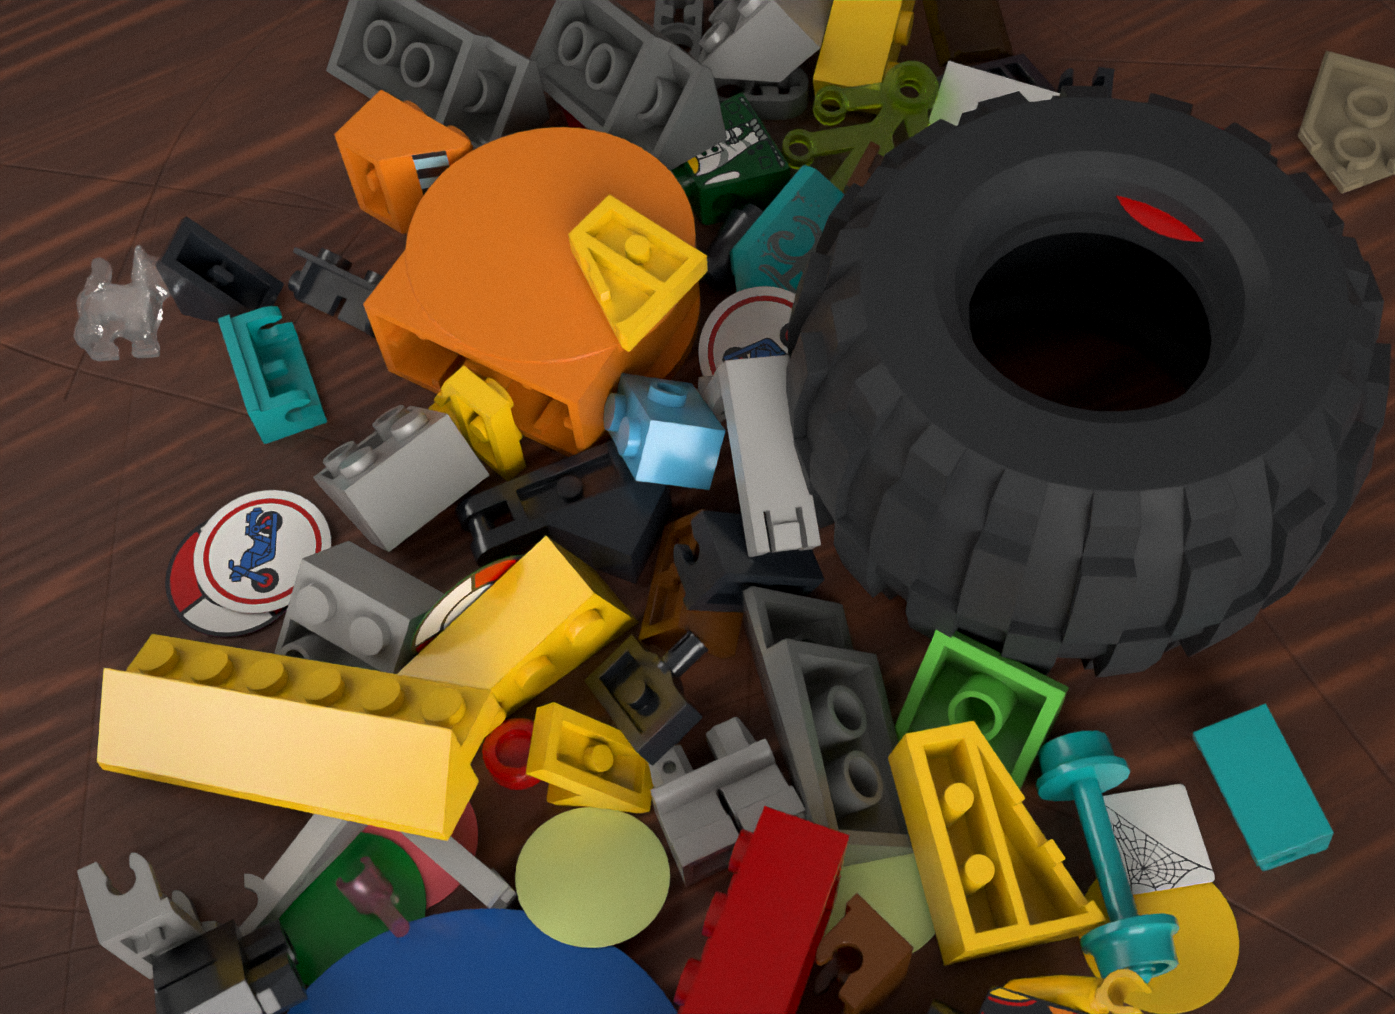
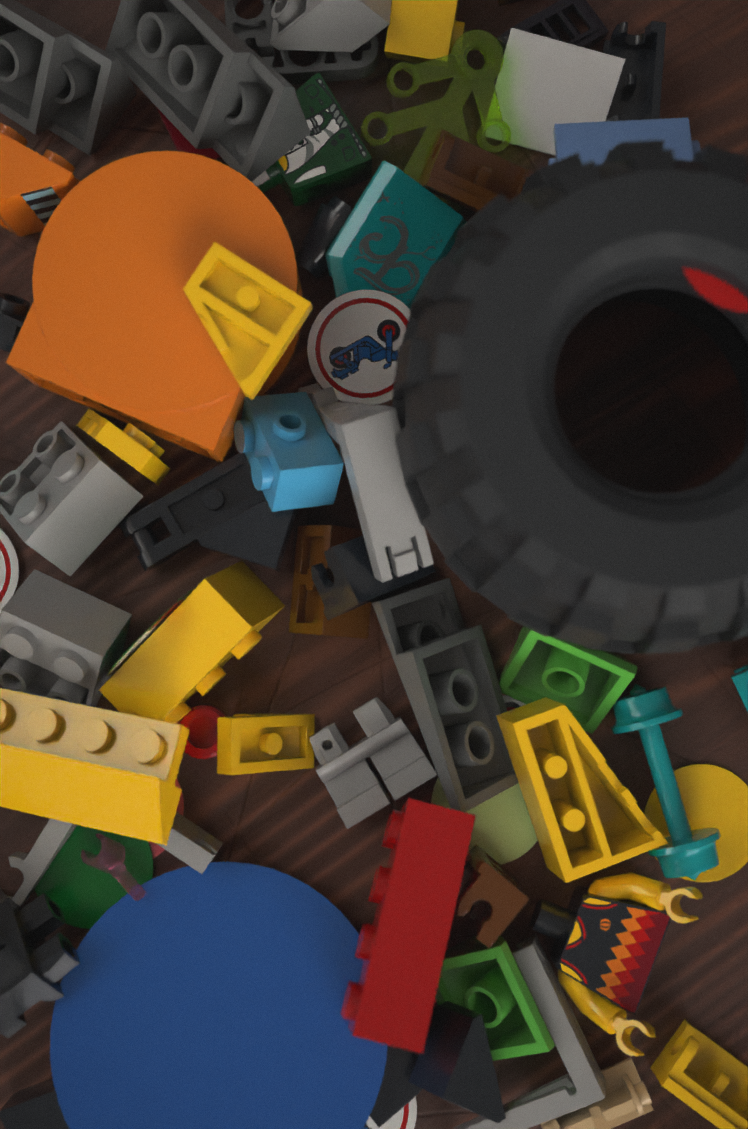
camera: 10 degrees left, 25 degrees up
(592, 877) = (277, 827): yellowish green sticker -> none
(647, 693) = (302, 686): black plate -> none
(1159, 839) = (702, 751): white sticker -> none

